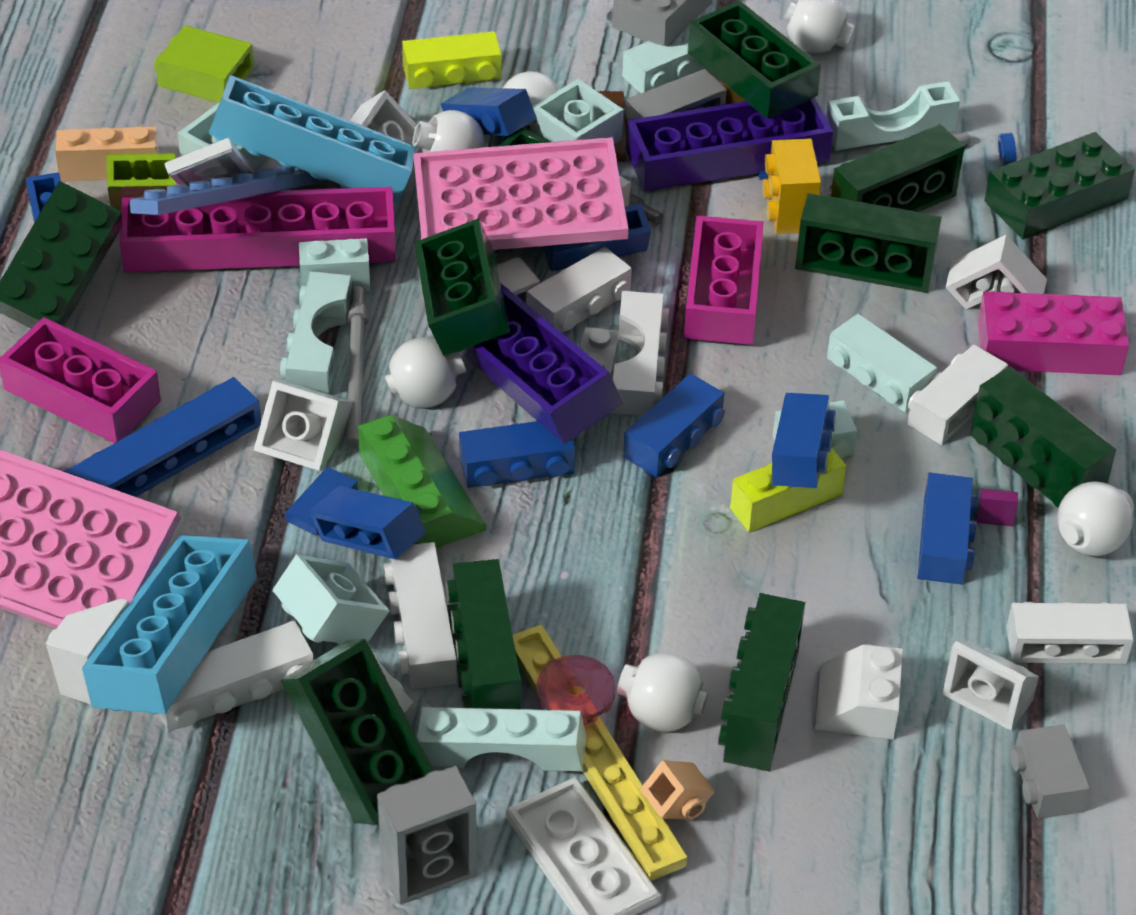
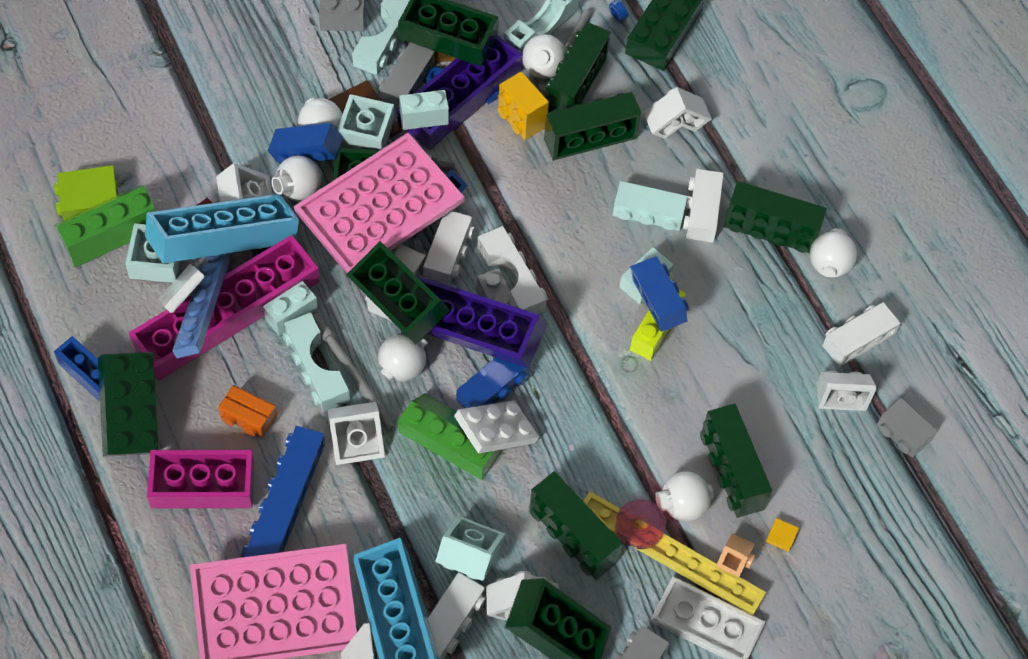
camera: 35 degrees left, 15 degrees up
(84, 151) = (81, 299): light nougat brick -> none
(136, 173) = (133, 315): lime brick -> none
(179, 91) = (104, 225): none -> bright green slope
(194, 344) = (247, 412): none -> orange brick
(322, 486) = (403, 477): blue tile -> none
(367, 522) = (451, 482): blue brick -> none
(422, 617) = (519, 523): white brick -> none
(451, 60) = (245, 110): neon yellow brick -> none
(476, 492) = (496, 426): none -> white plate
(546, 737) = (616, 582): light aqua arch -> none
(654, 126) = (424, 109): none -> light aqua brick
(673, 425) = (567, 313): blue brick -> none
(724, 280) = (527, 195): dark pink brick -> none
(769, 809) = (782, 535): none -> yellow tile
(858, 137) = (543, 55): none -> white brick
(860, 692) = (782, 434): white slope -> none
(947, 528) = (756, 301): blue brick -> none
(997, 507) = (774, 271): magenta tile -> none
(1054, 332) = (728, 134): dark pink brick -> none

